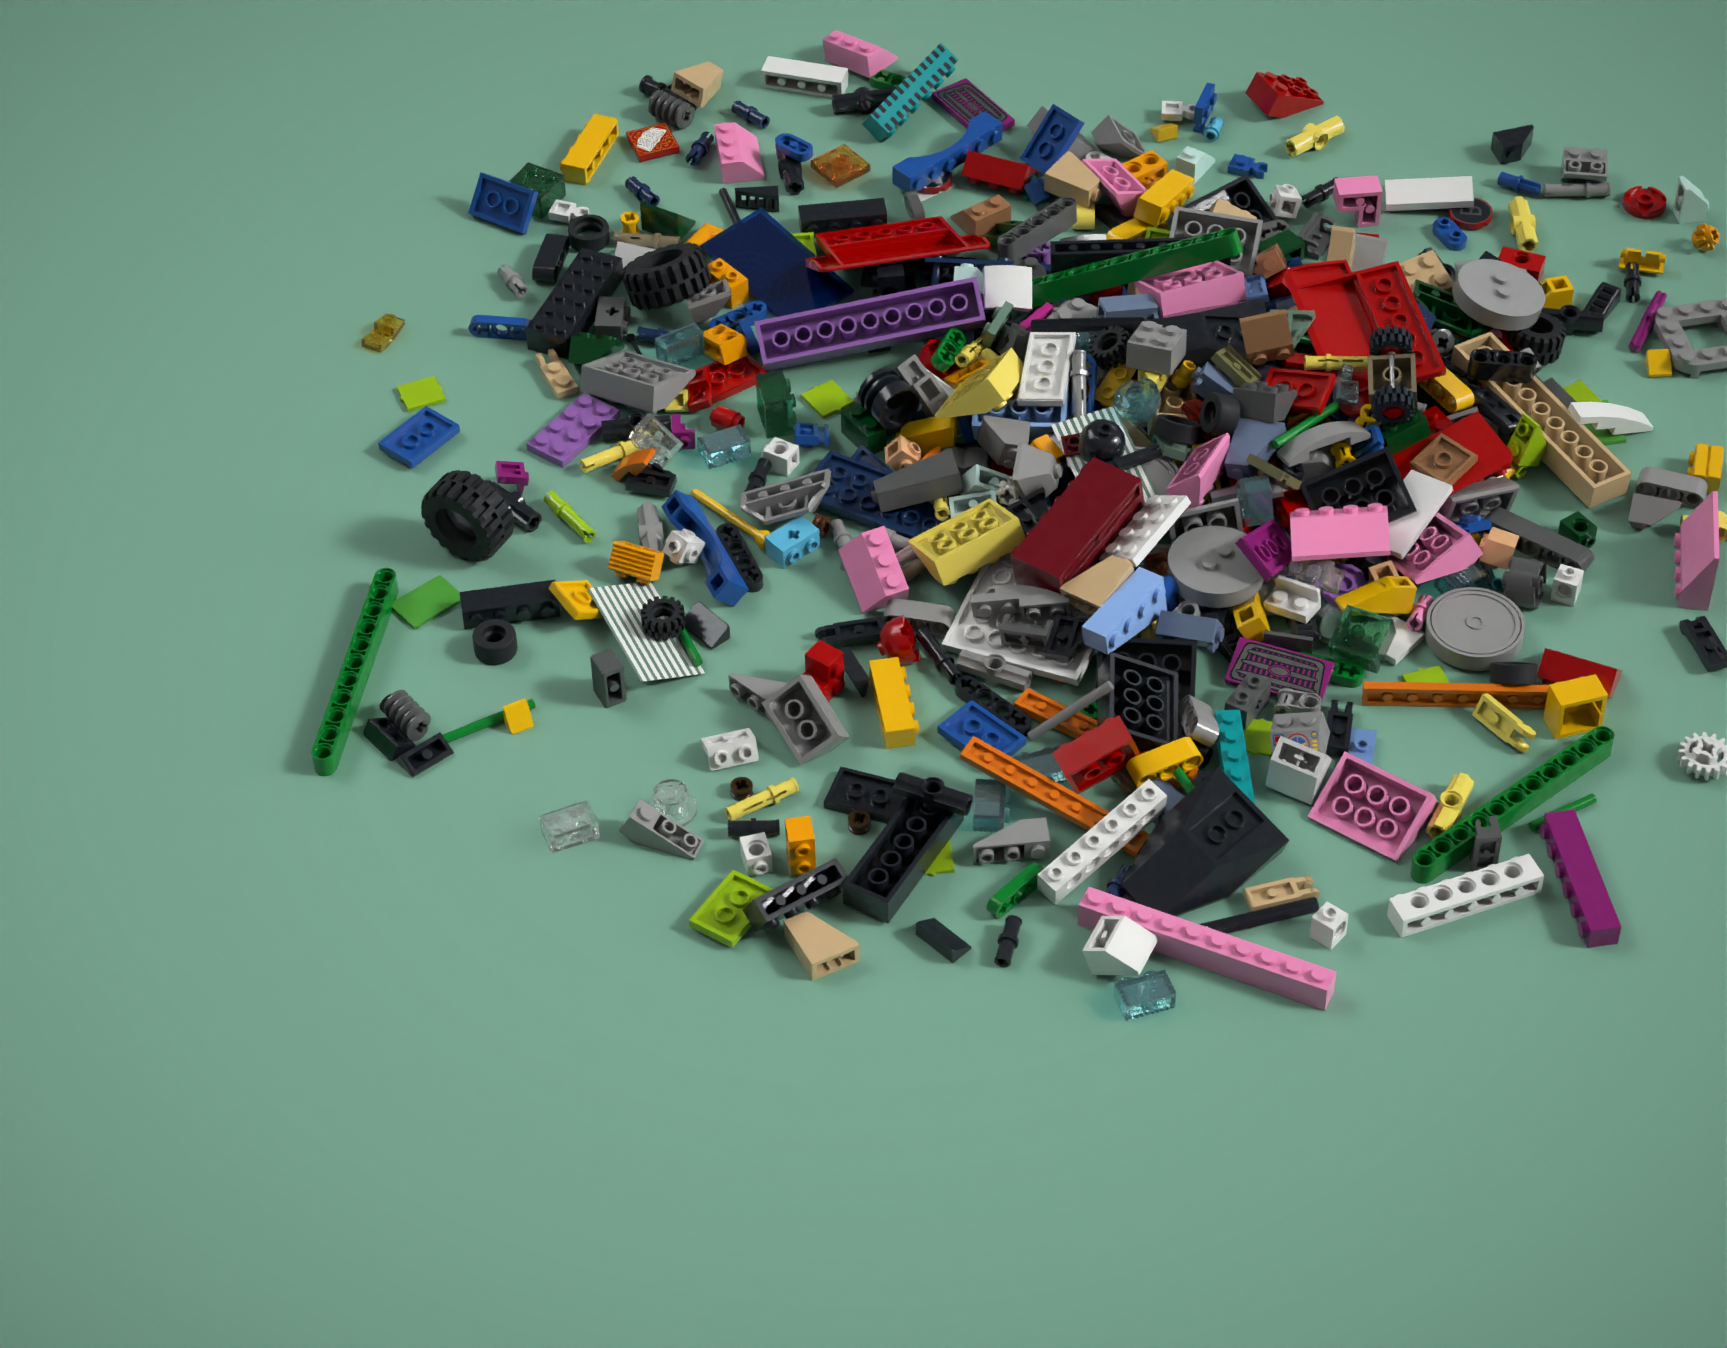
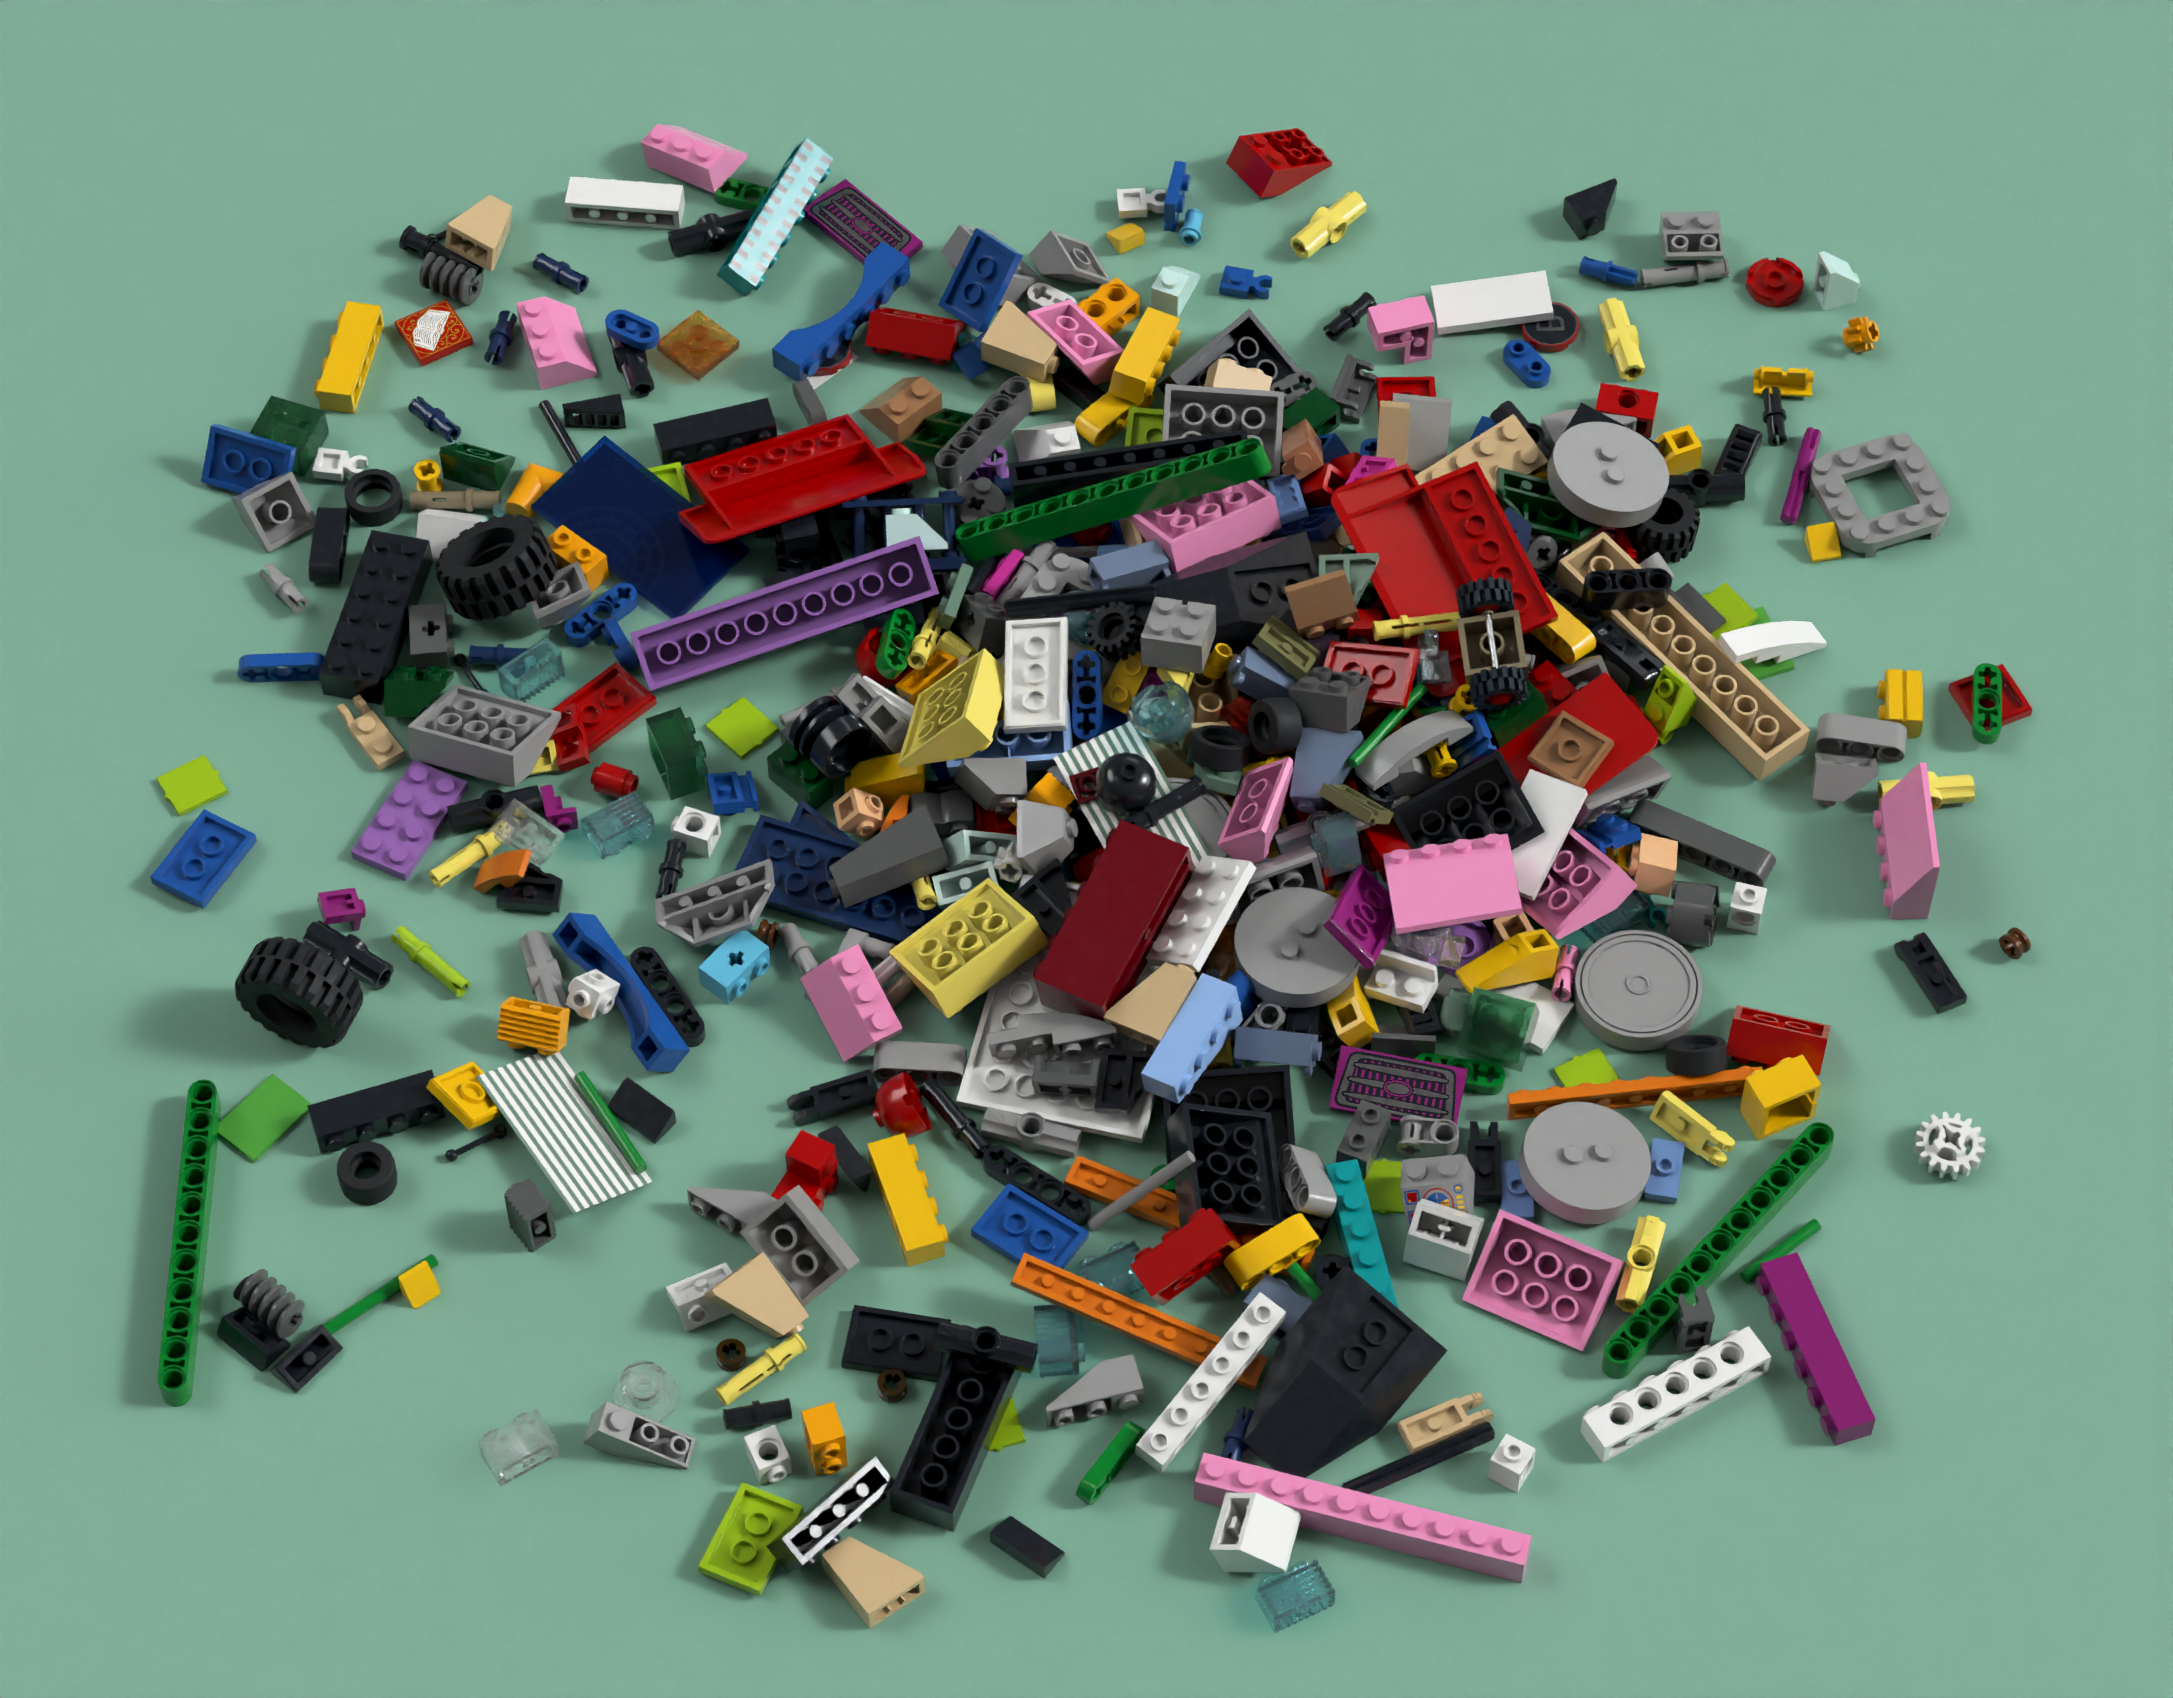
camera: 10 degrees left, 10 degrees up
(384, 333) = (122, 693): clear yellow slope -> none
(516, 233) = (275, 511): none -> light grey slope
(598, 629) = (499, 1132): none -> black hinge
(663, 627) = (585, 1095): black tyre -> none
(724, 344) = (591, 662): light orange brick -> none
(759, 535) = (690, 961): yellow piece -> none
(768, 749) = (760, 1298): none -> tan slope
(1008, 284) = (961, 538): white slope -> none
(1008, 941) = (1110, 1539): black pin -> none
(1078, 377) = (1081, 692): light grey pin -> none
(1285, 201) = (1304, 340): white brick -> none
(1416, 734) = (1584, 1162): none -> light grey brick
(1478, 749) = (1665, 1170): none -> medium blue plate
(1578, 529) = (1750, 812): dark green brick -> none

